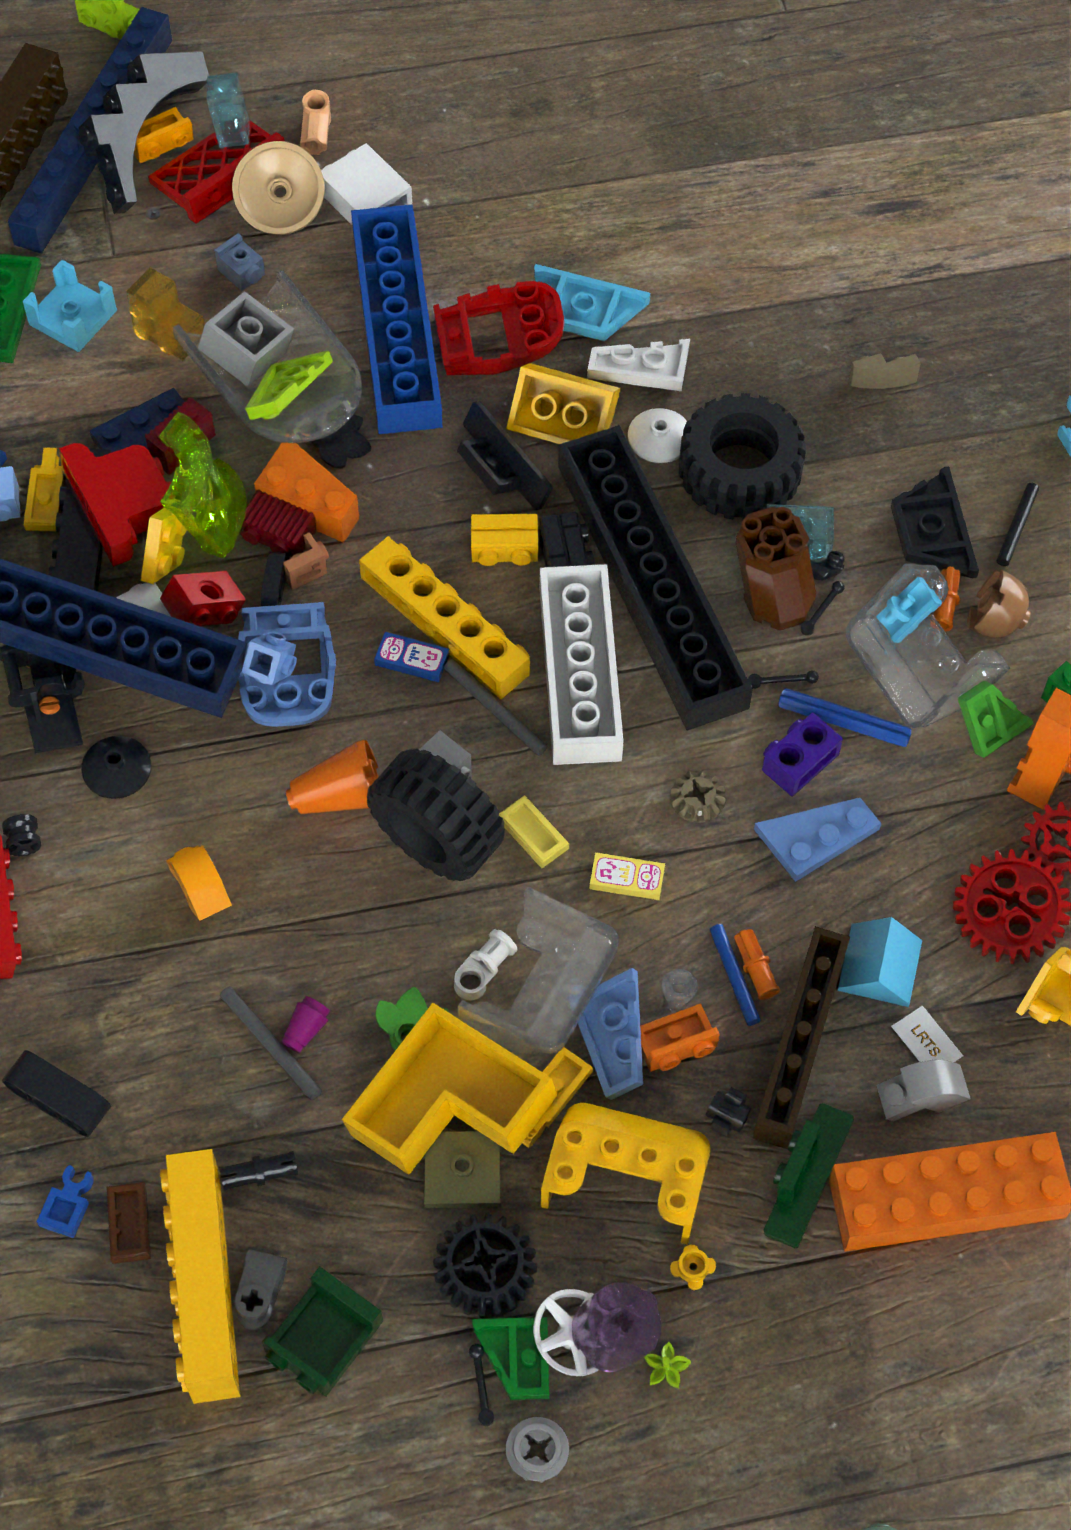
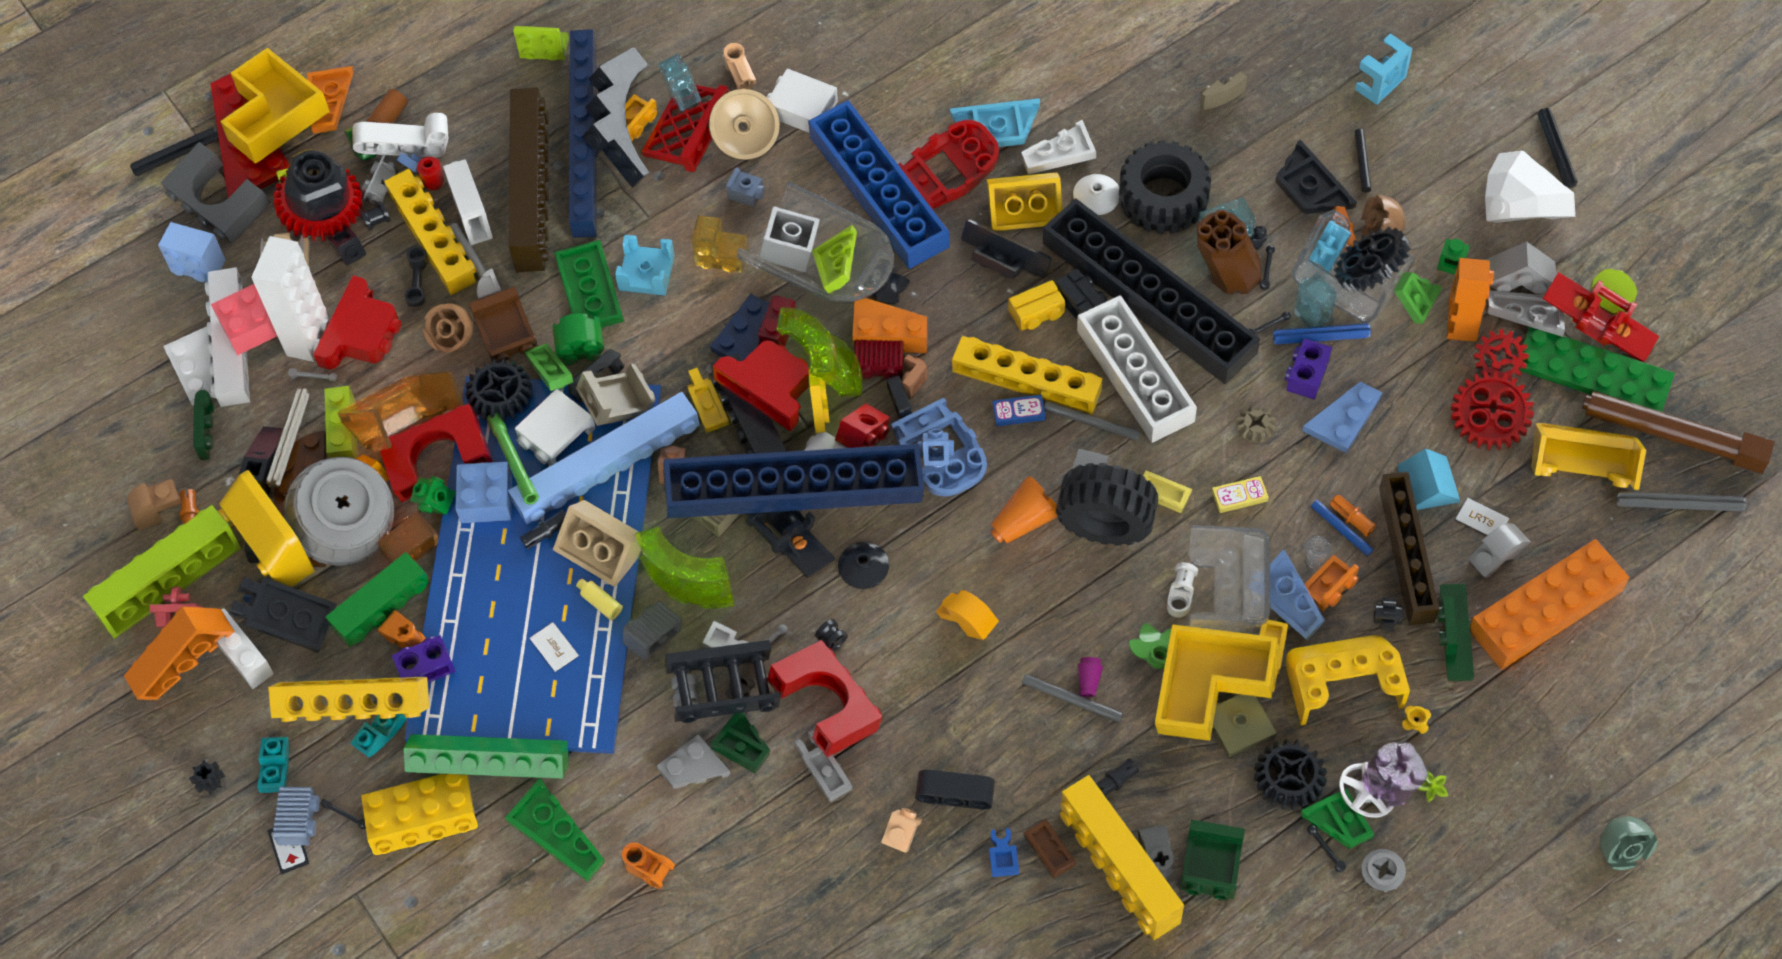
camera: 20 degrees left, 0 degrees up
(852, 672) = (1315, 301): none -> clear light blue brick
(947, 646) = (1372, 259): none -> black gear

